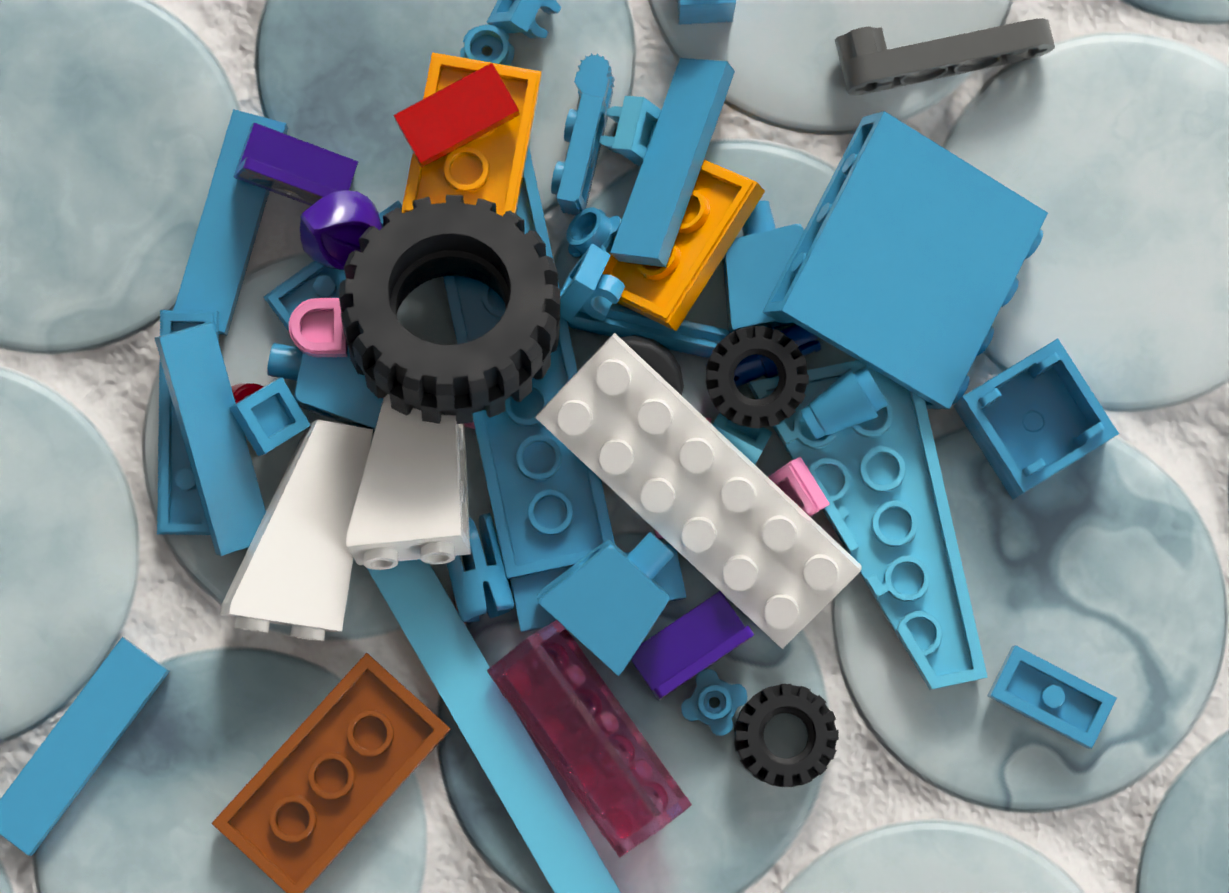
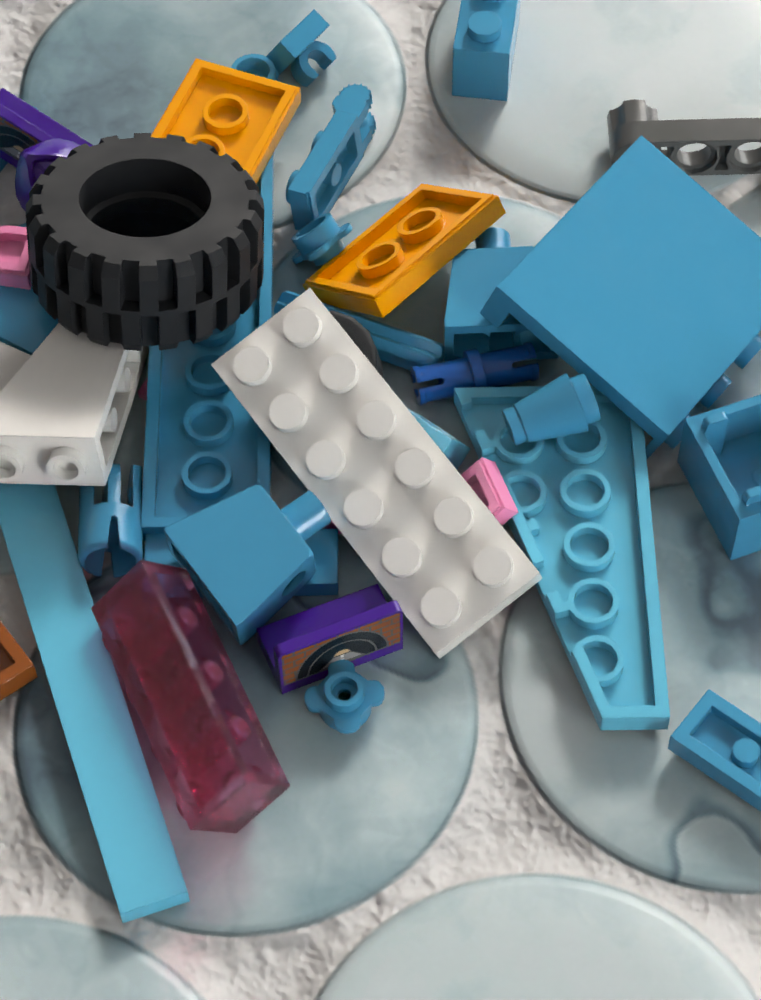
camera: 15 degrees right, 25 degrees down
(456, 115) = (204, 101): red tile -> none
(589, 287) = (295, 262): dark azure tile -> none
(634, 129) = (387, 161): medium azure tile -> none
(672, 162) = (415, 186): dark azure tile -> none
(790, 387) = (452, 337): black tyre -> none
(820, 728) = (423, 708): black tyre -> none

